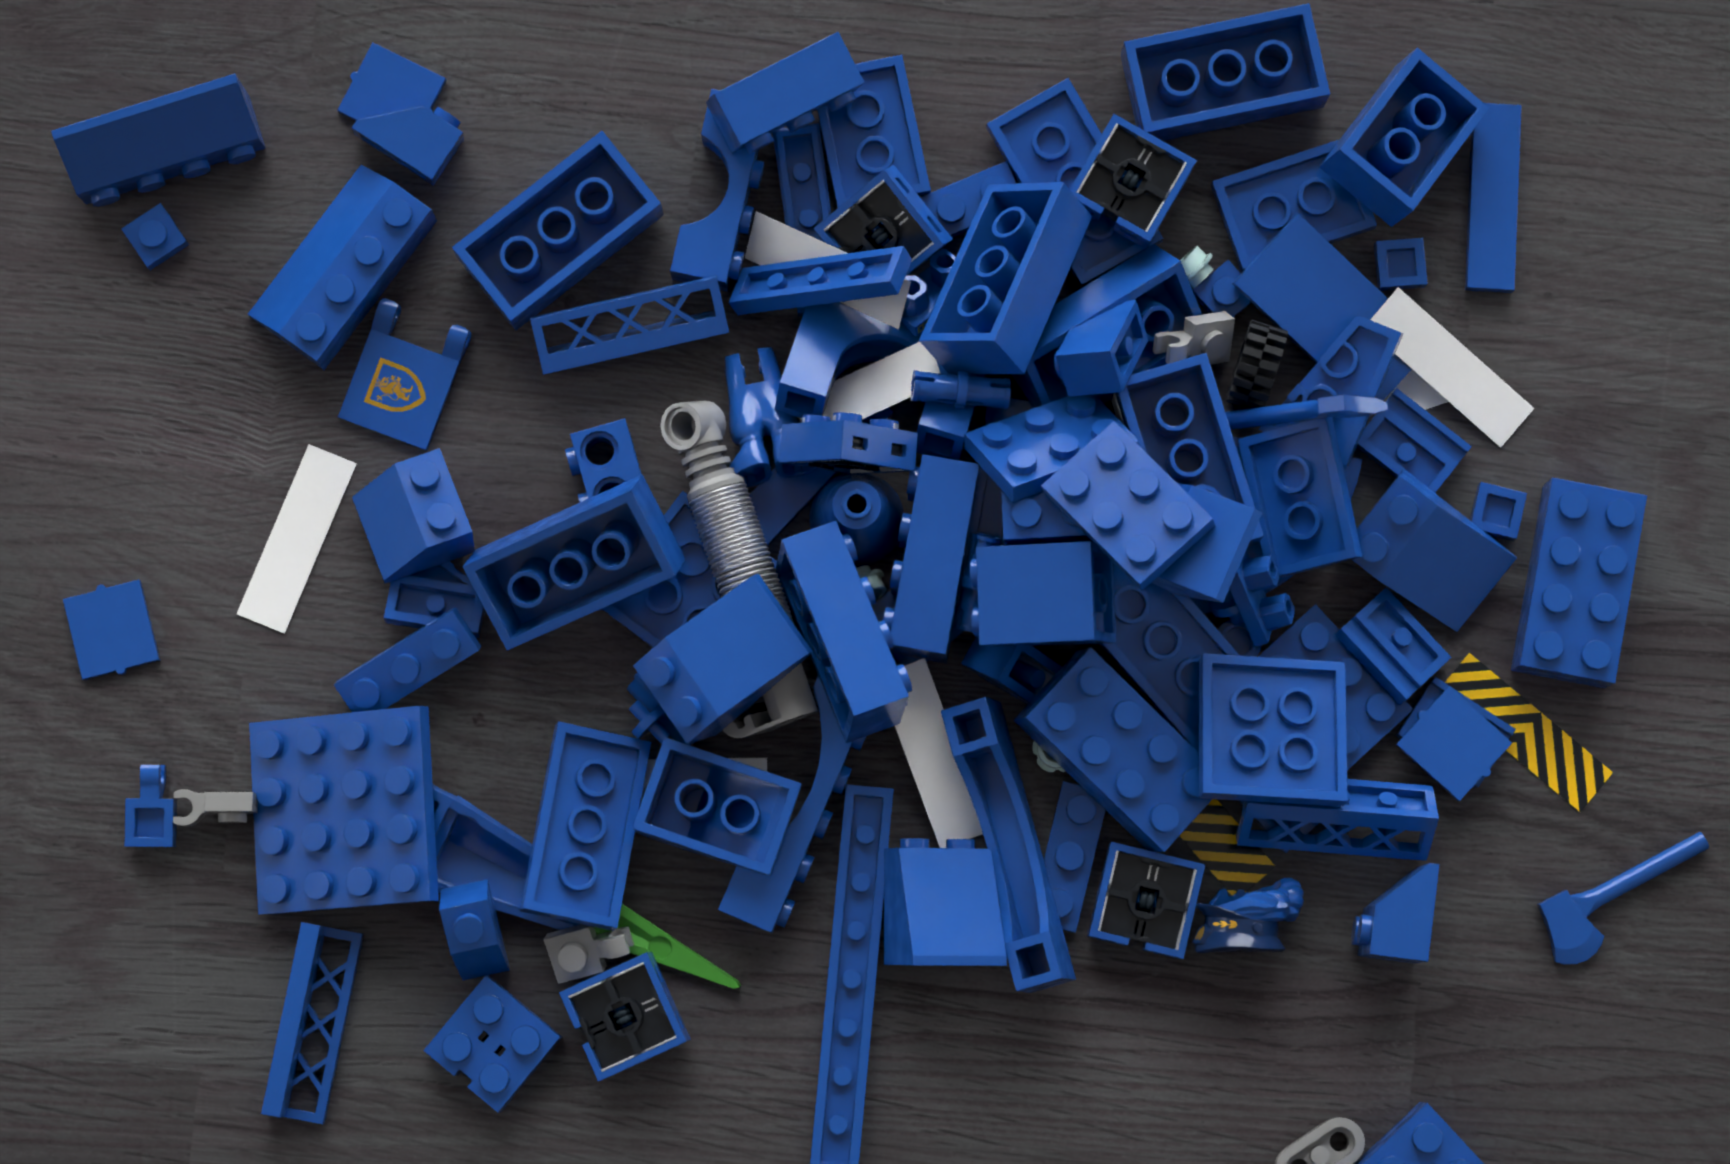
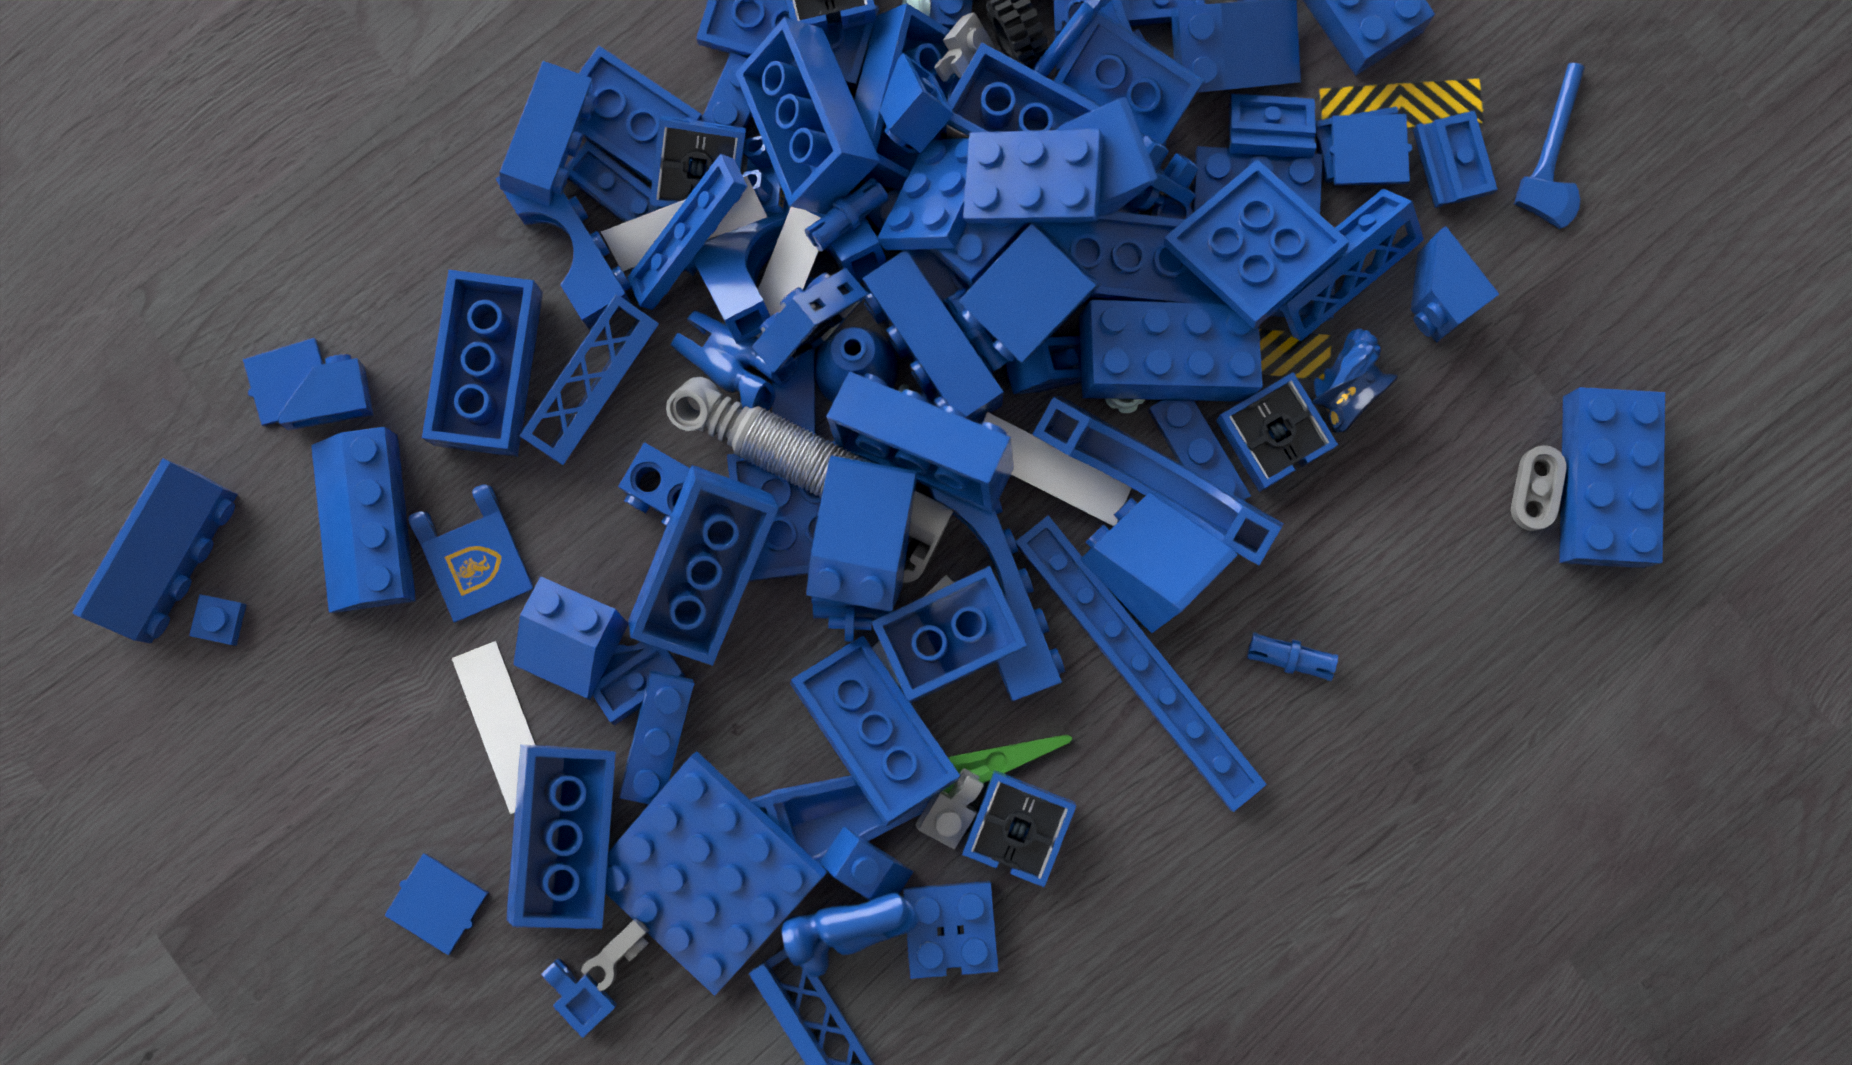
camera: 45 degrees left, 0 degrees up
(258, 671) = (560, 837): none -> blue slope
(409, 961) = (846, 930): none -> blue piece
(980, 1094) = (1292, 656): none -> blue pin
(1520, 819) = (1455, 159): none -> blue plate

